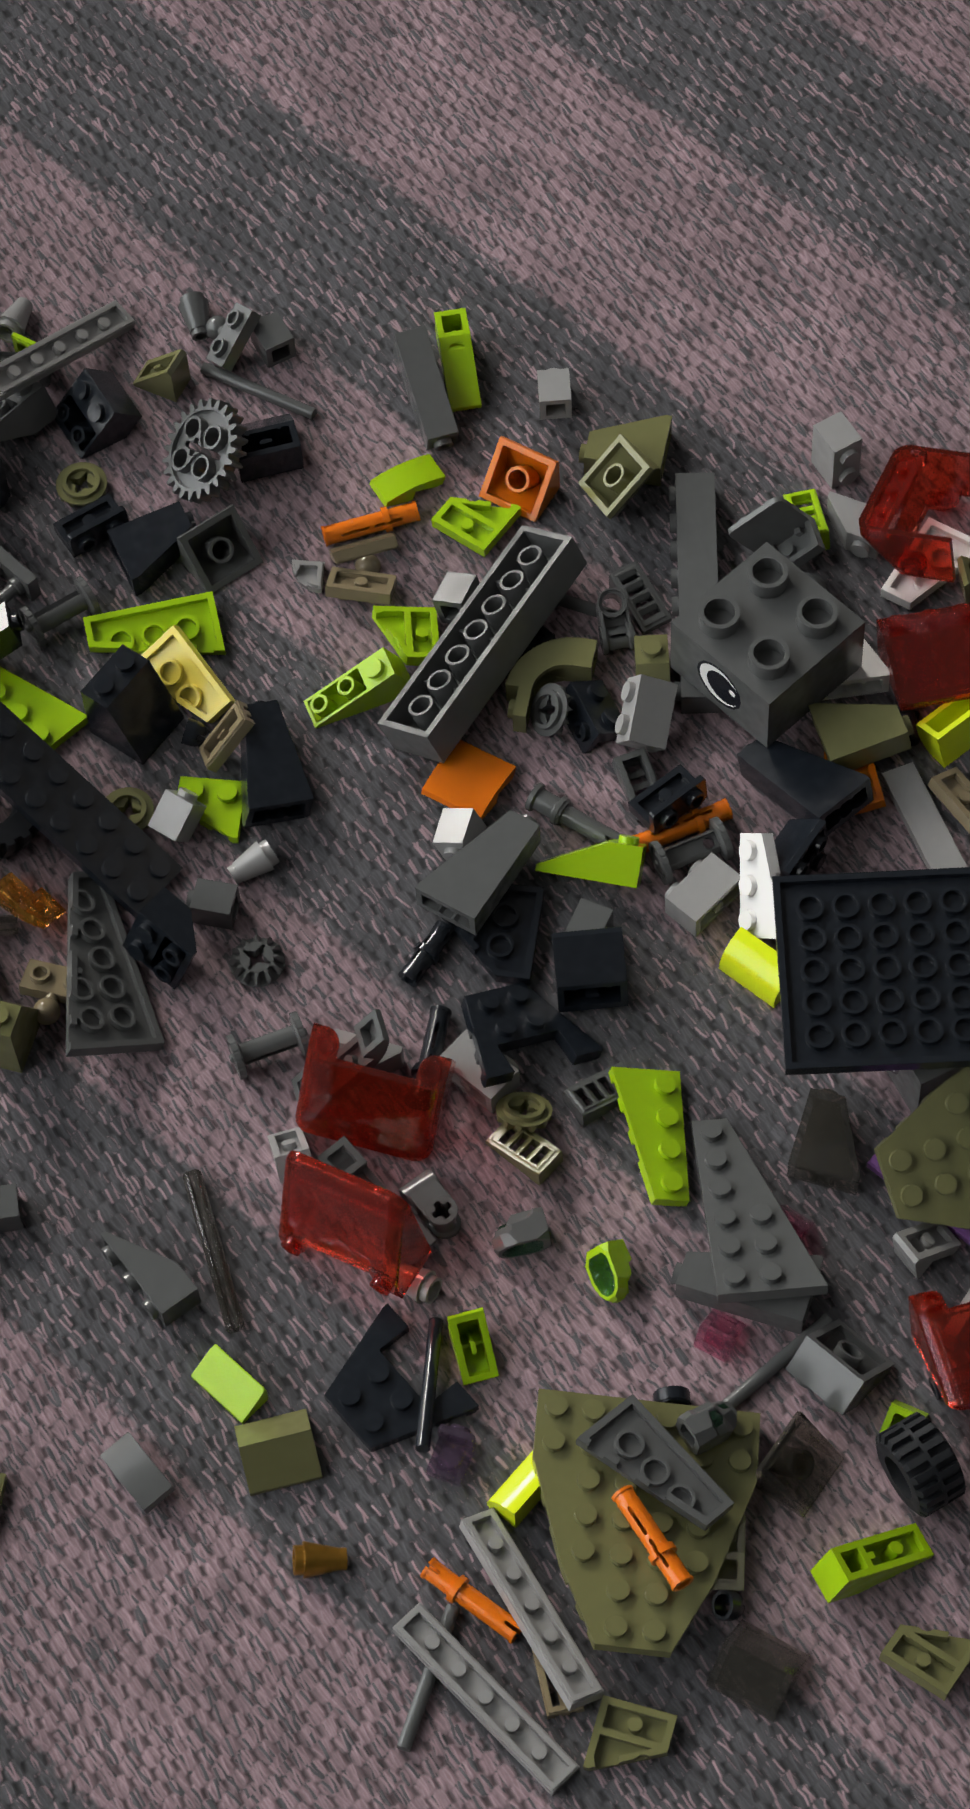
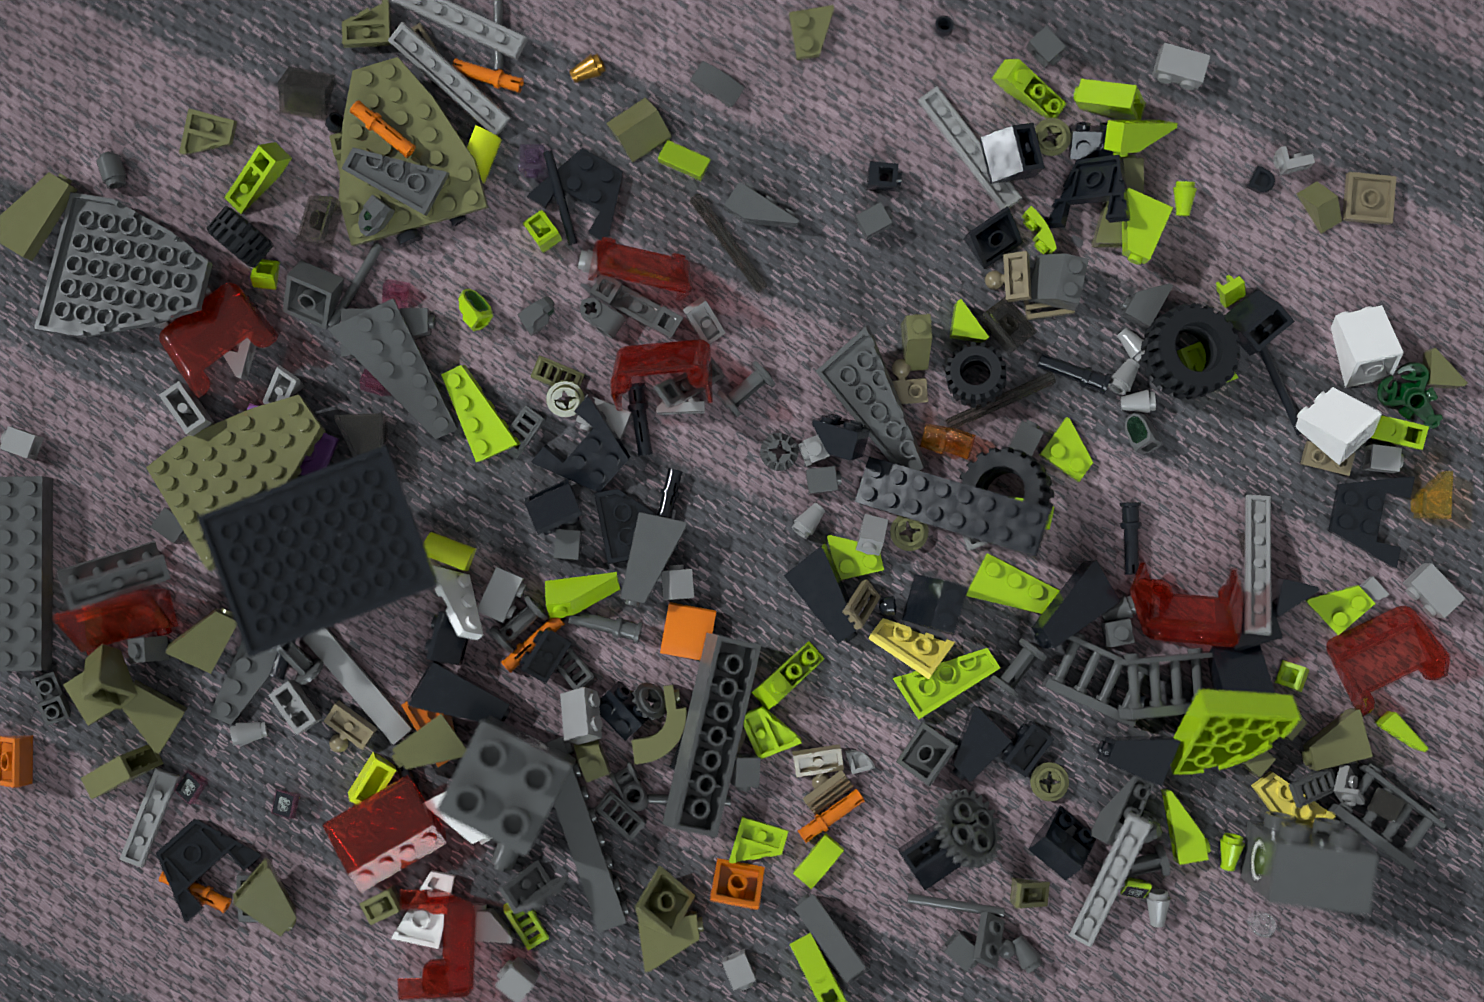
camera: 155 degrees right, 25 degrees up
(211, 943) = (813, 450): none -> light grey brick

